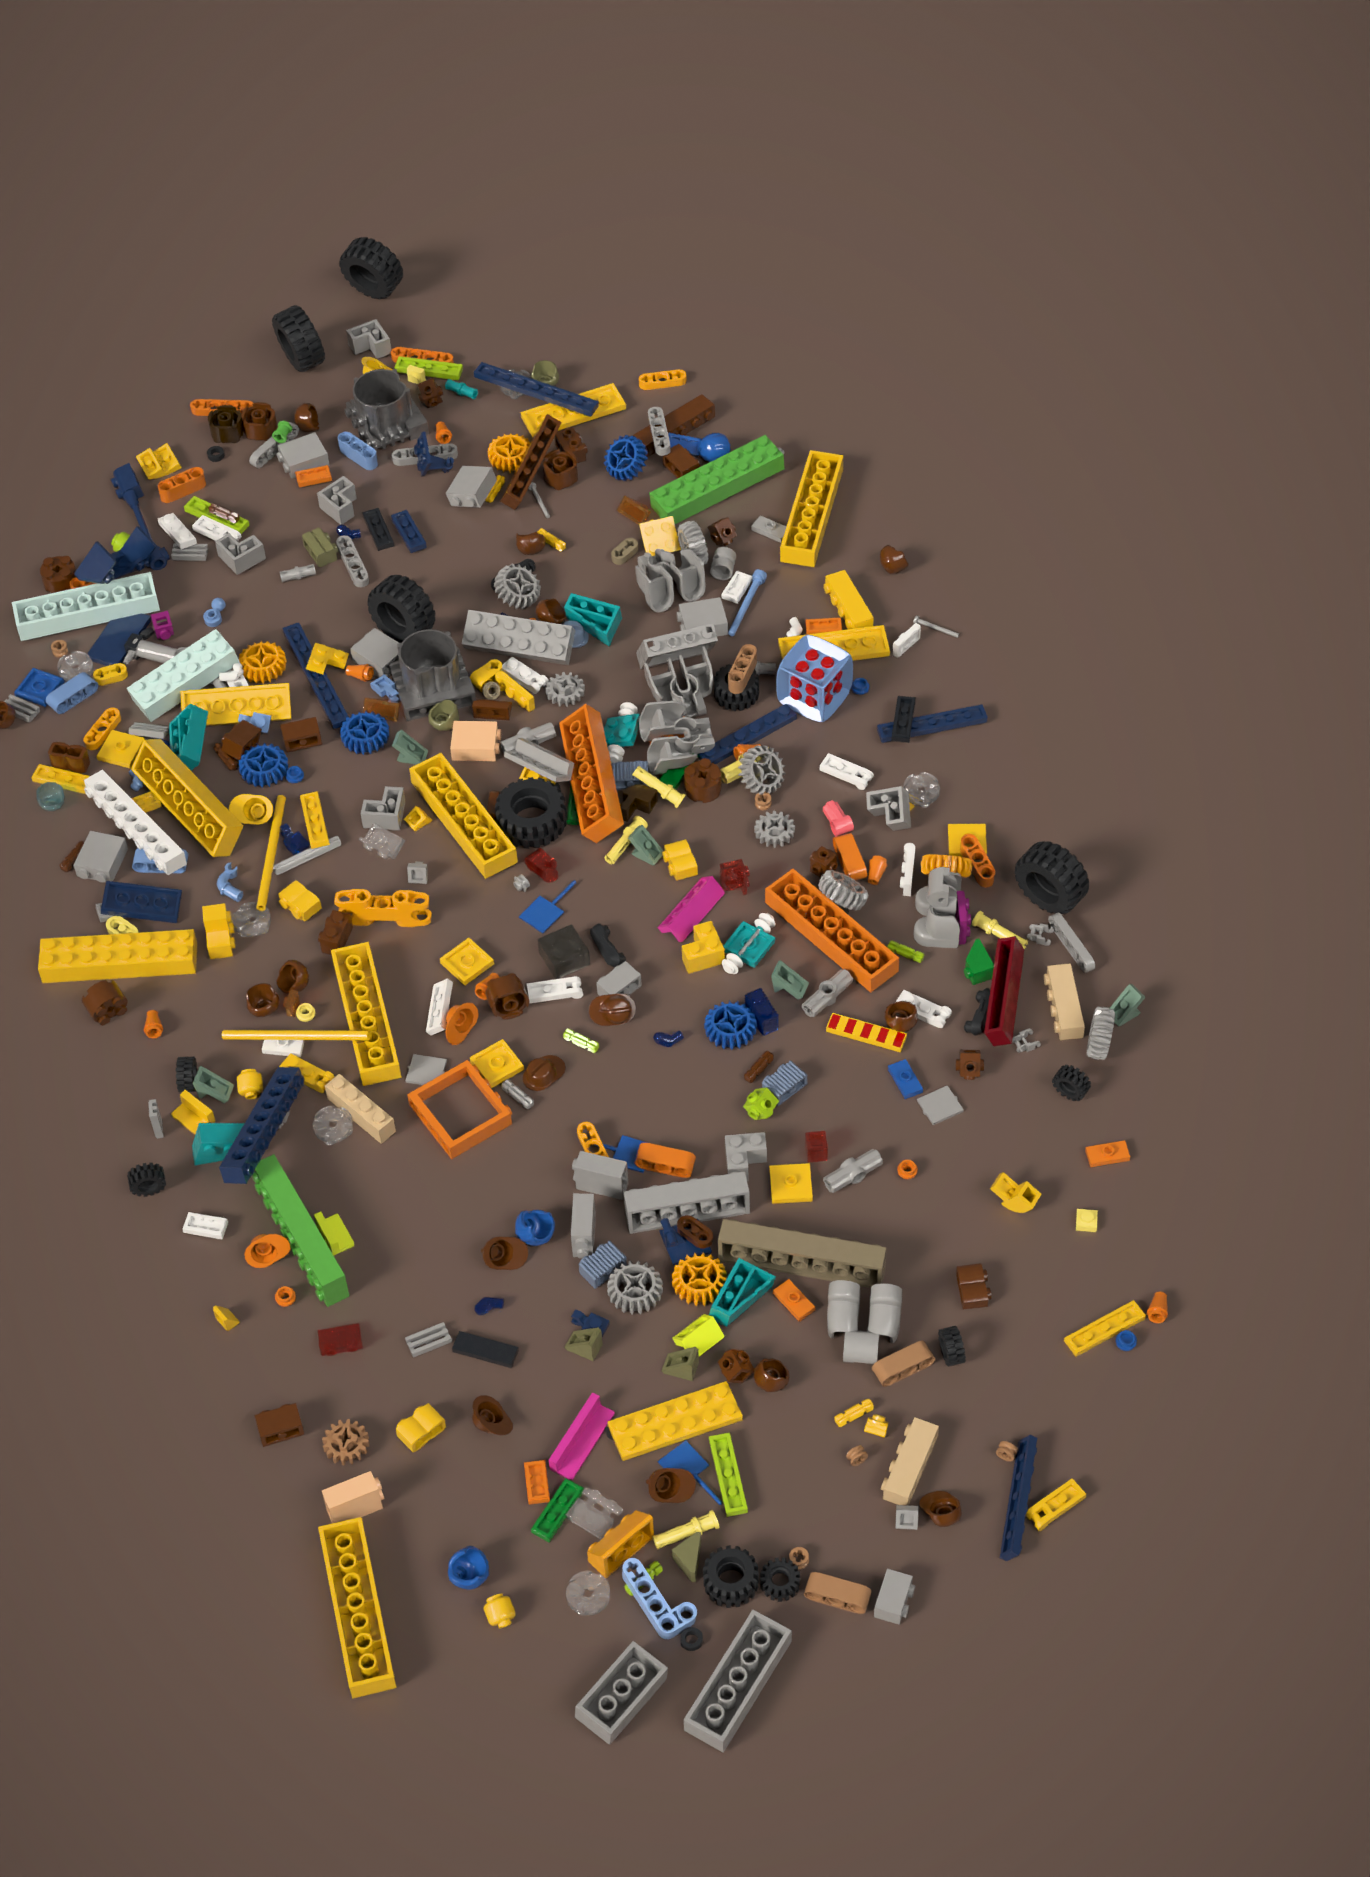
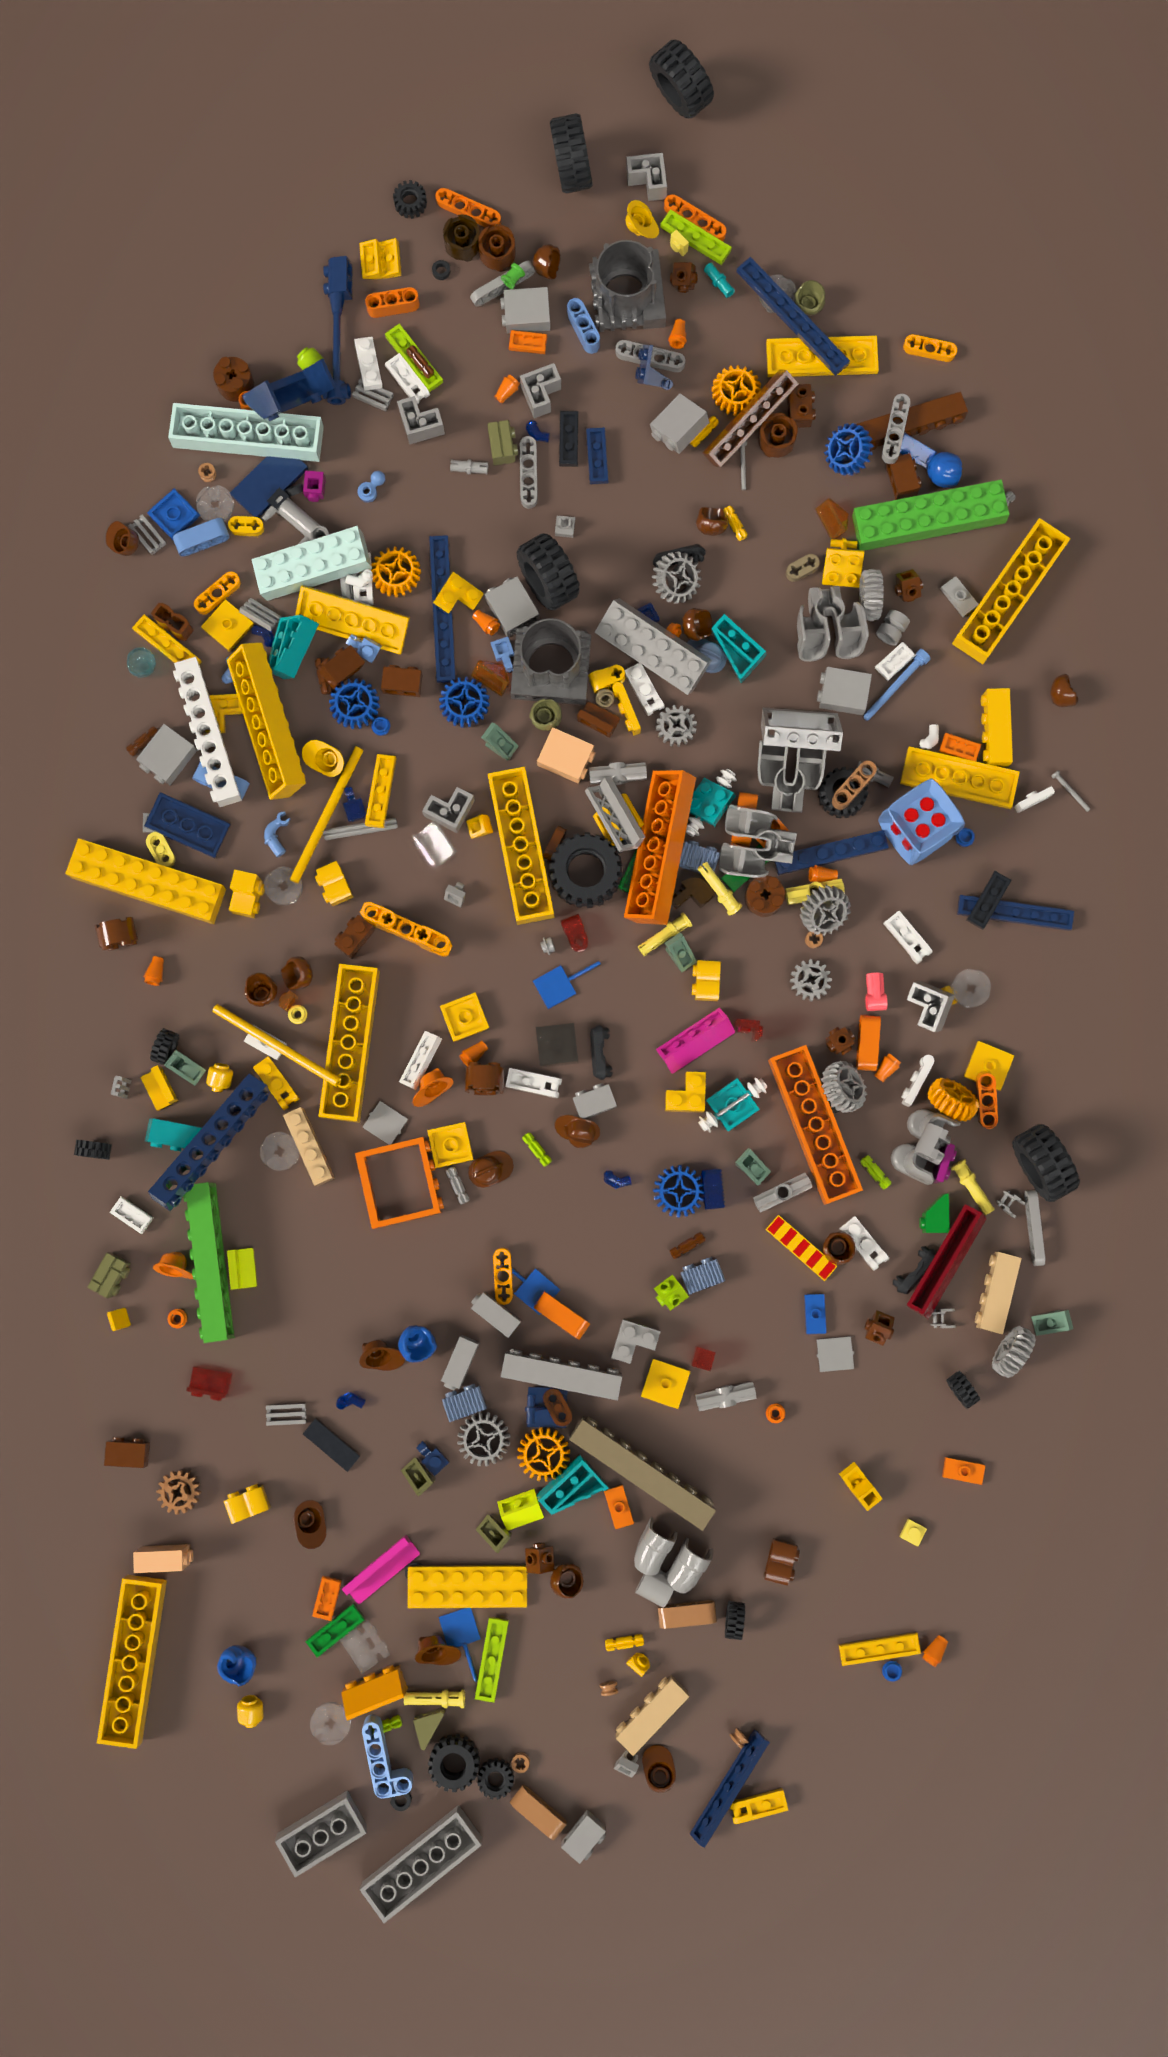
camera: 20 degrees right, 30 degrees up
(168, 409) = (410, 189): none -> black tyre
(202, 1281) = (109, 1275): none -> olive brick
(308, 511) = (507, 388): none -> orange cone

